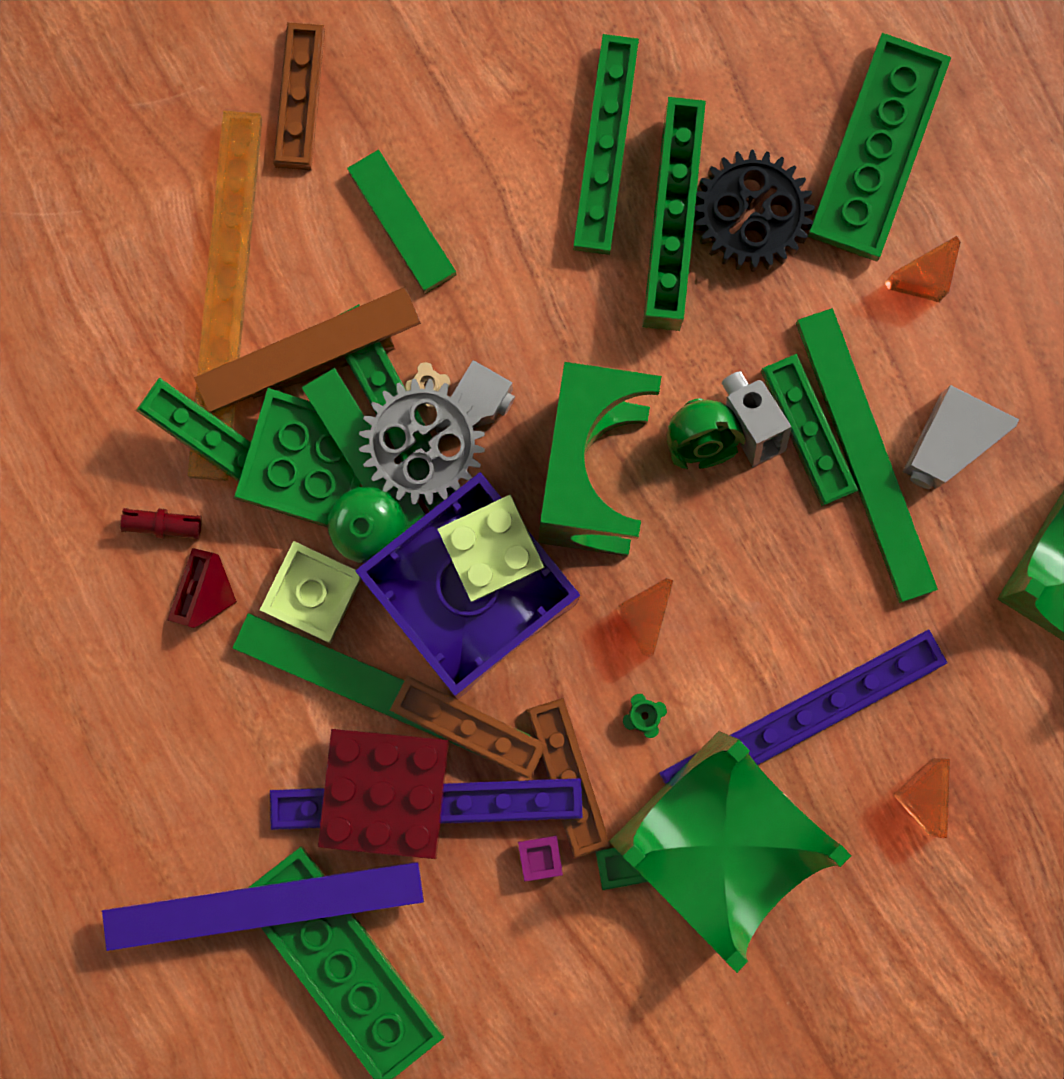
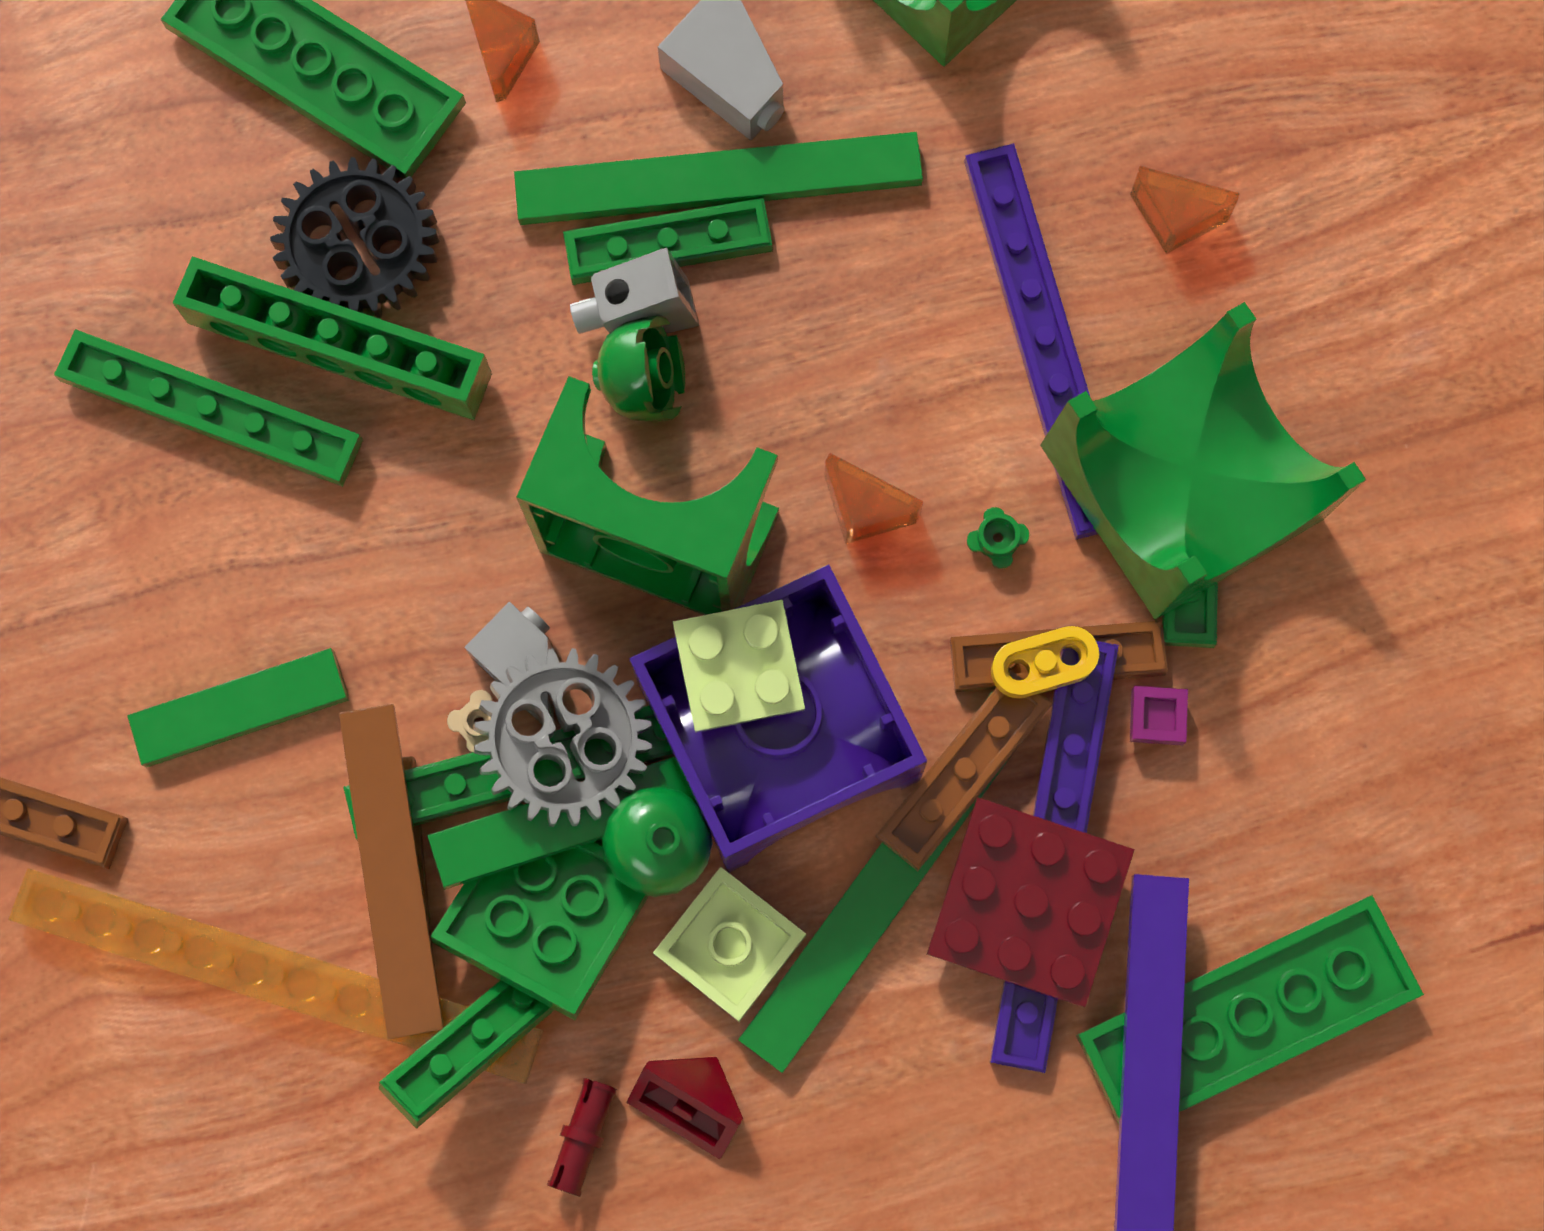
camera: 70 degrees left, 5 degrees down
(554, 766) = (1043, 662): none -> yellow plate

